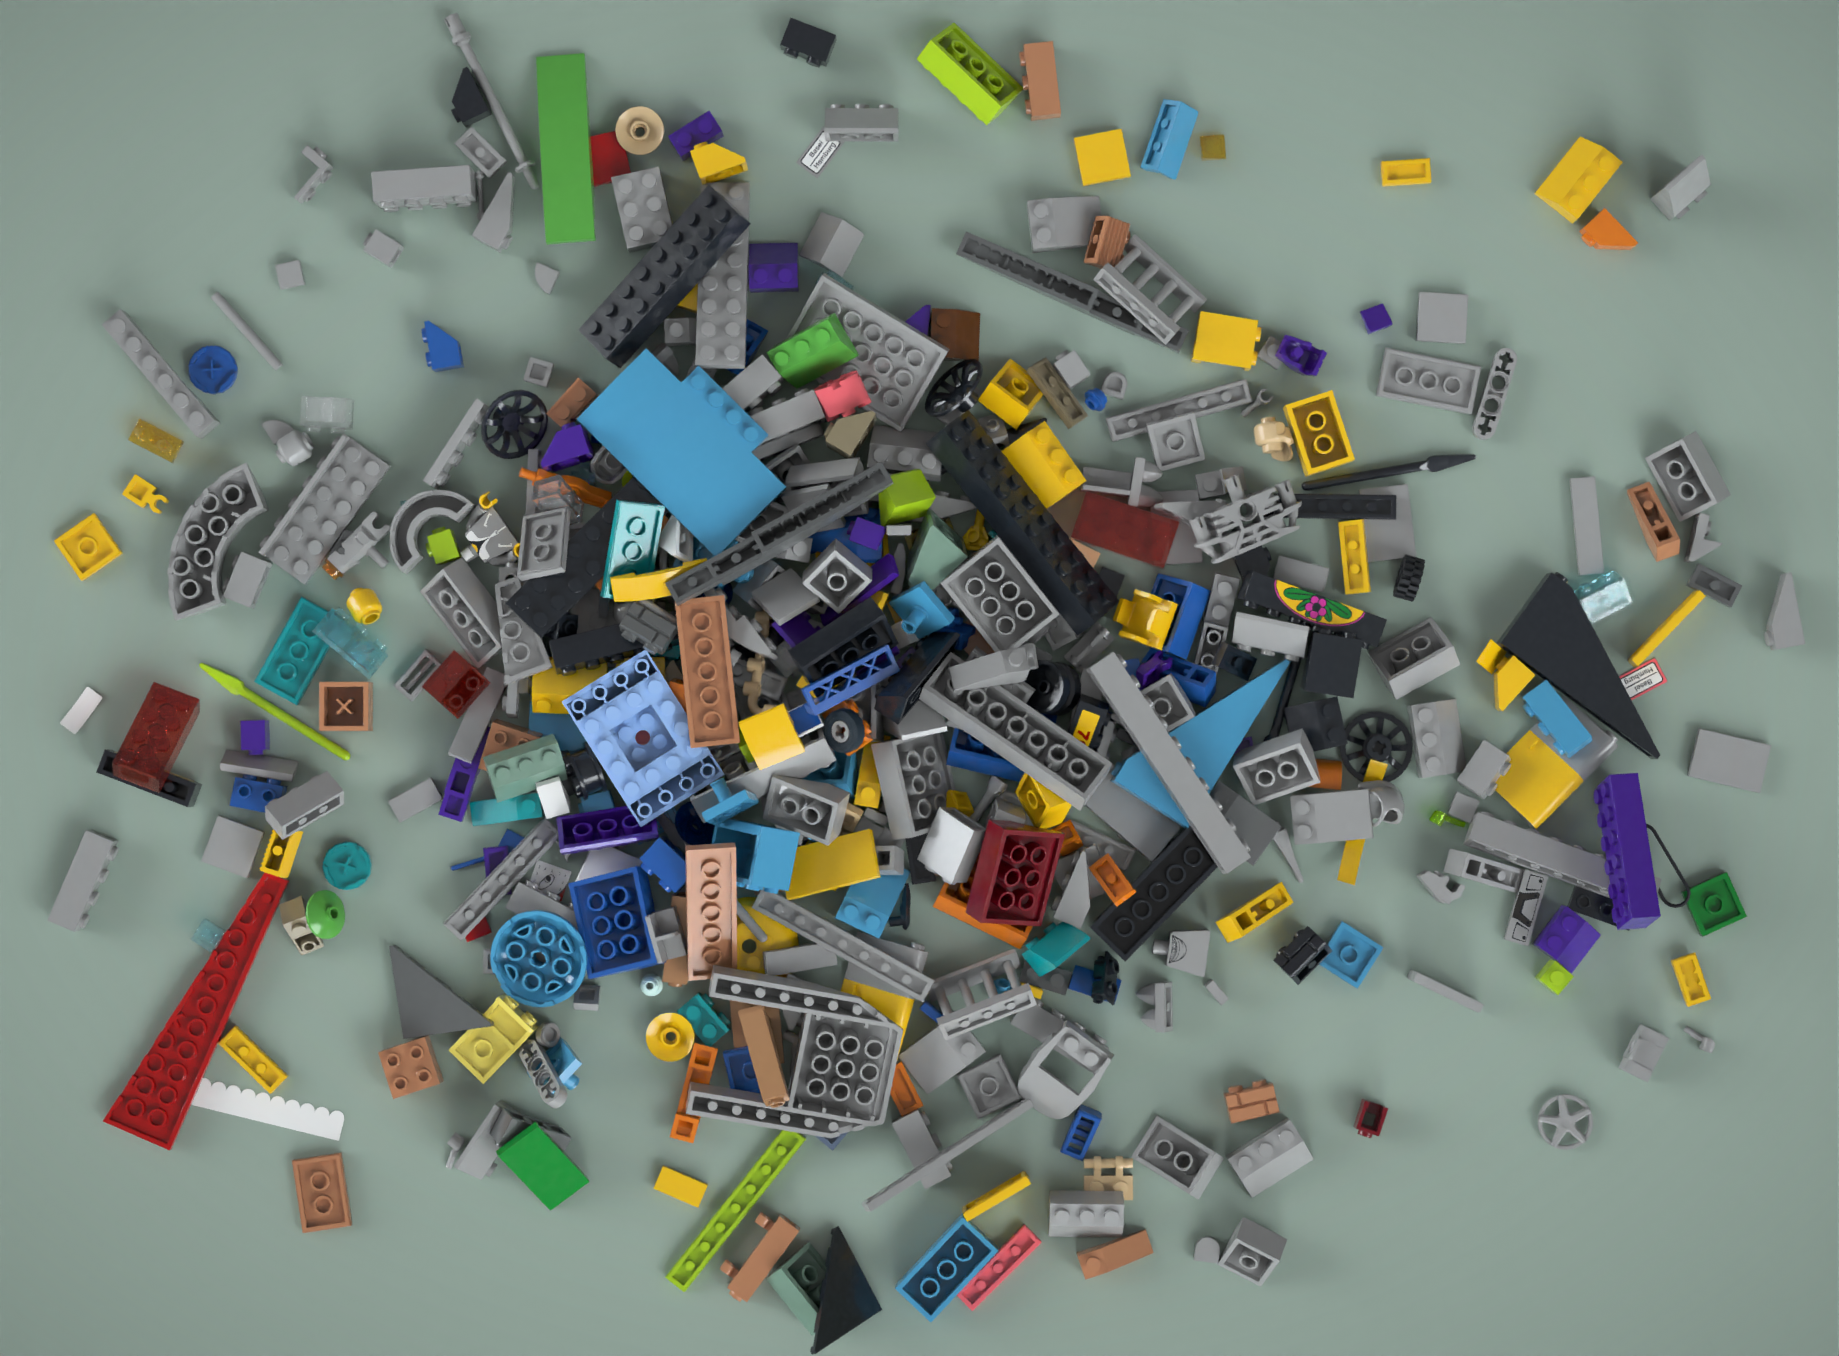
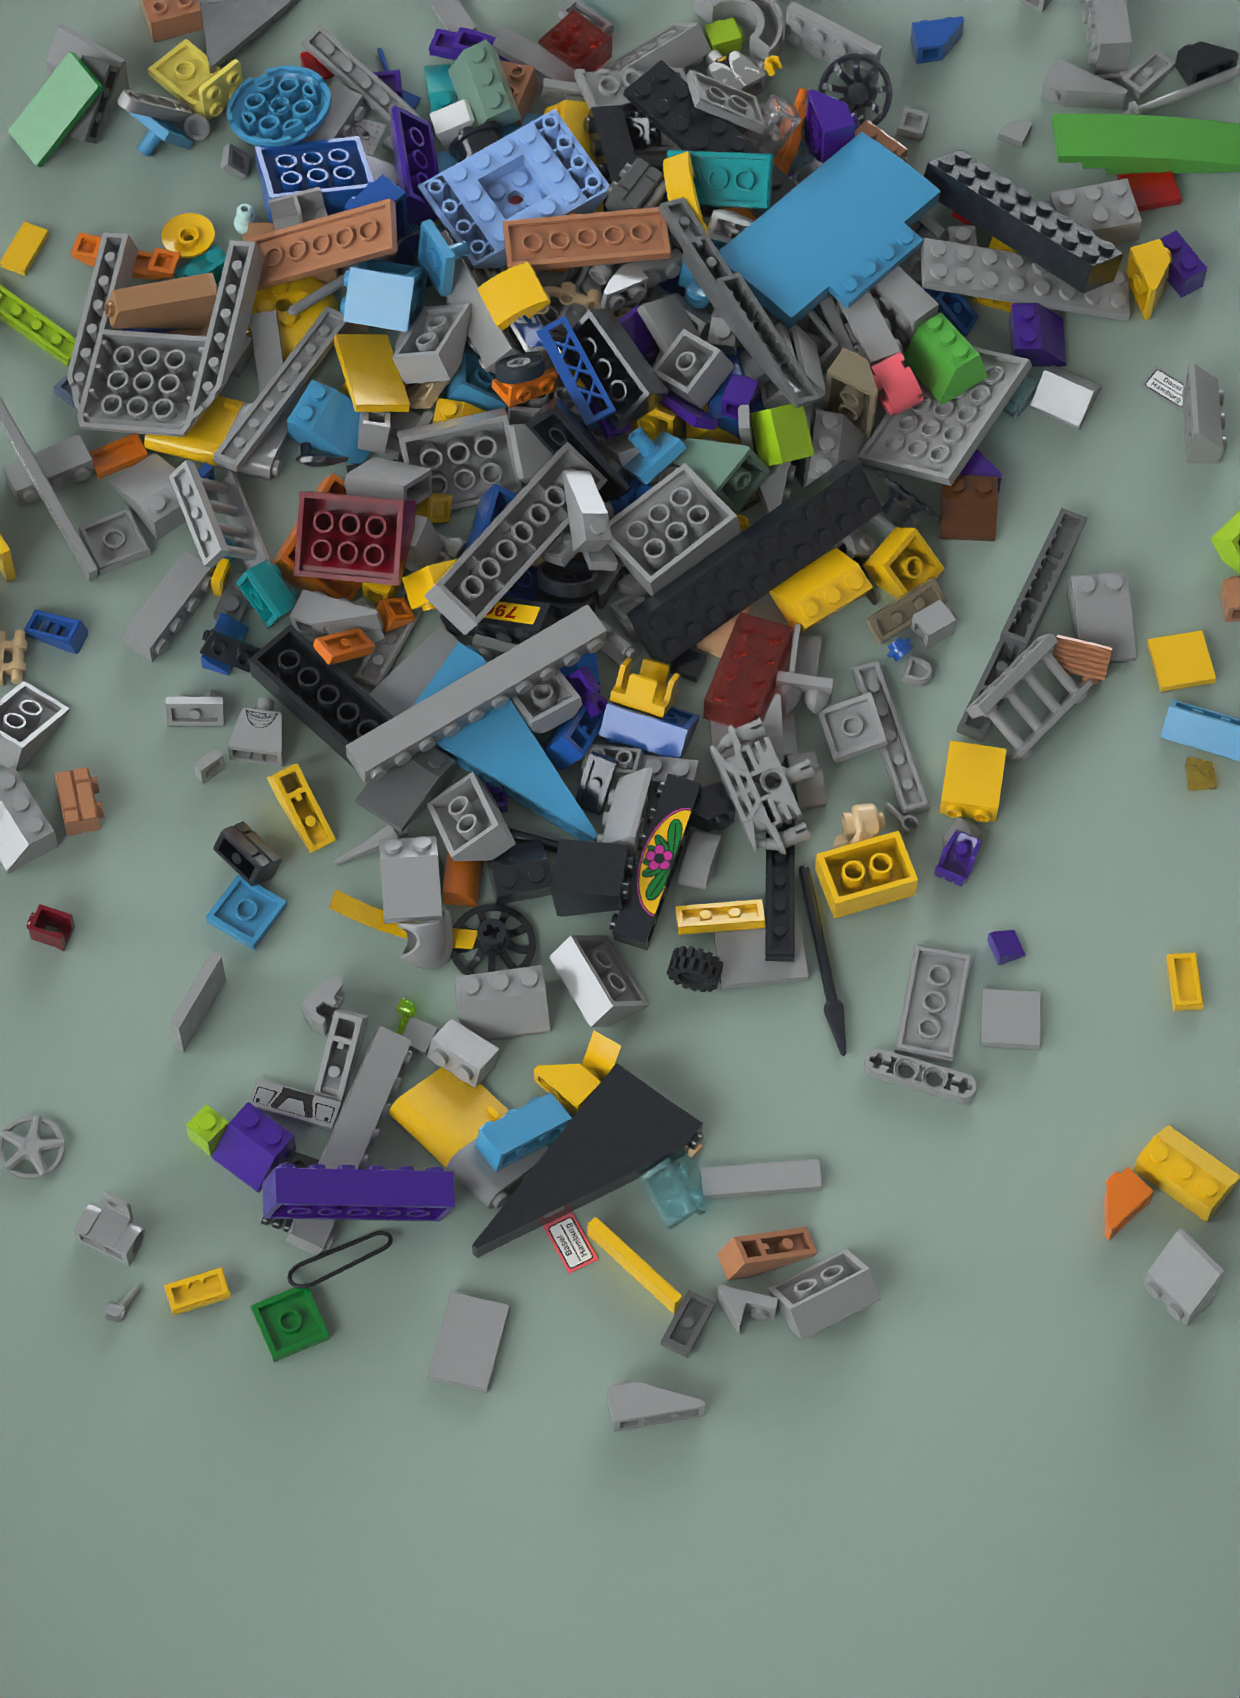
camera: 90 degrees right, 25 degrees down
(638, 118) = (1183, 205): tan dish -> none
(1049, 1093) = (104, 590): light grey slope -> none

